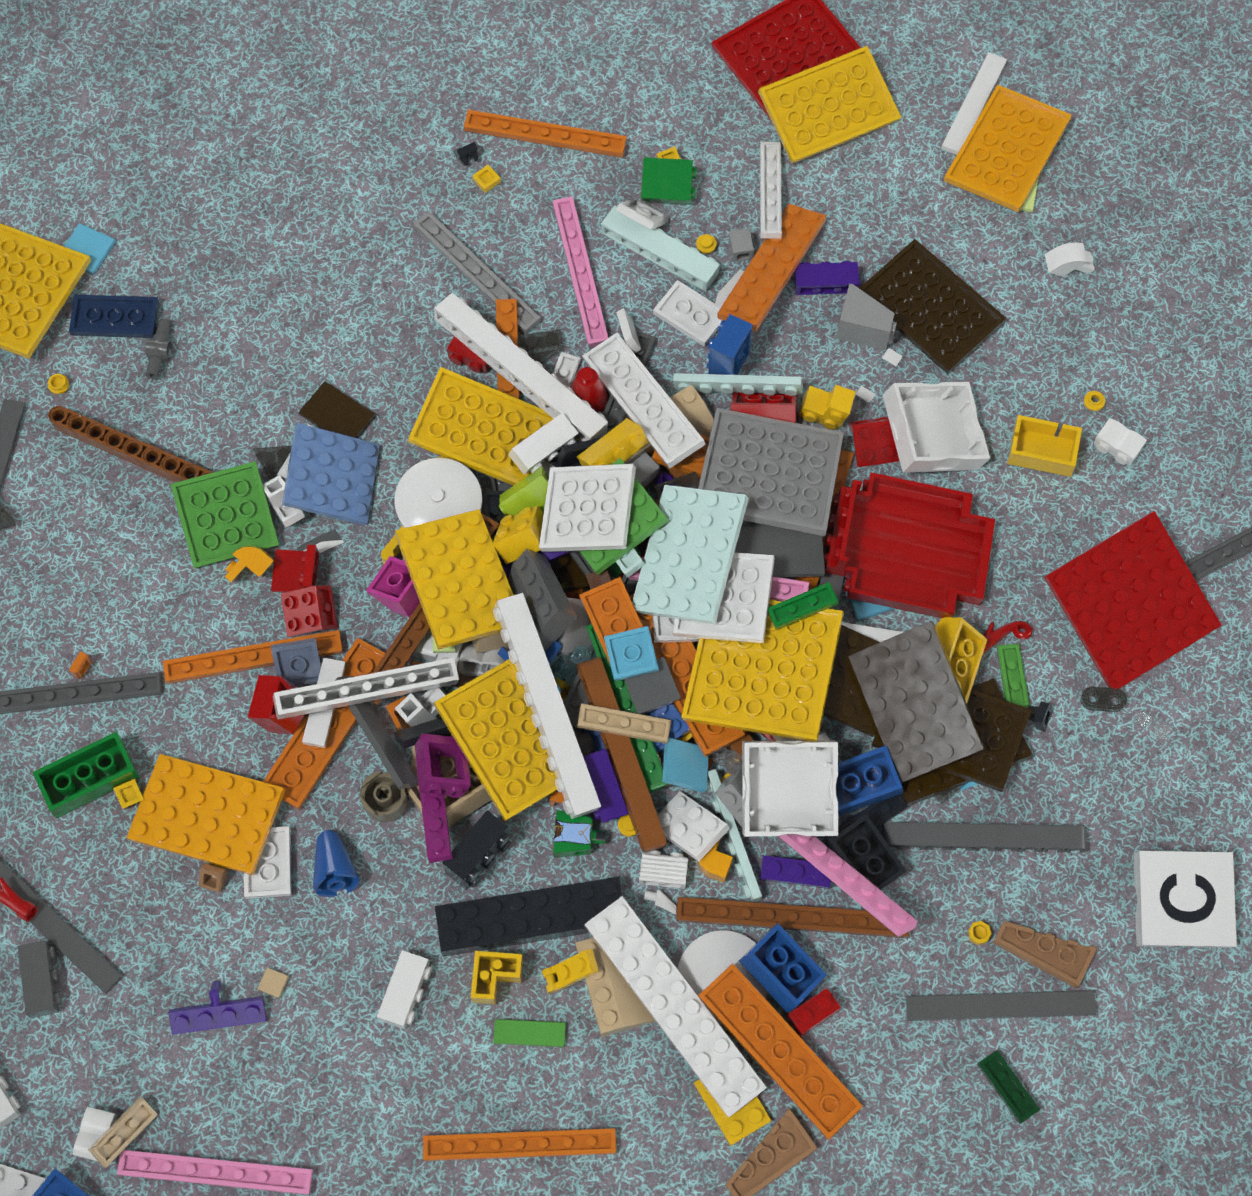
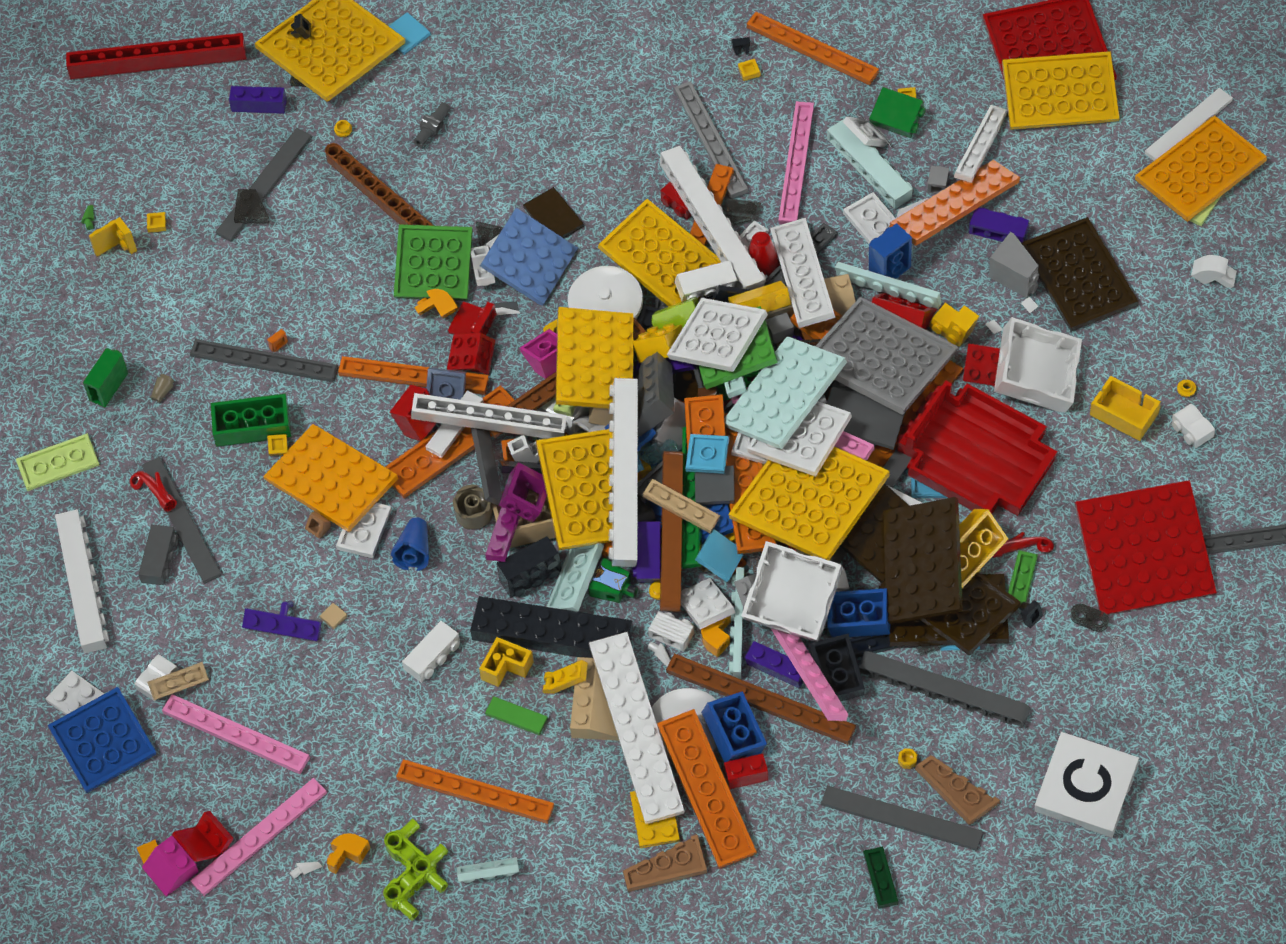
camera: 25 degrees right, 10 degrees down
(114, 316) = (406, 90): dark blue plate -> none
(533, 847) = (575, 577): none -> light aqua plate
(628, 330) = (815, 219): white tile -> none
(706, 243) = (910, 171): yellow plate -> none
(802, 606) = (858, 457): green tile -> none

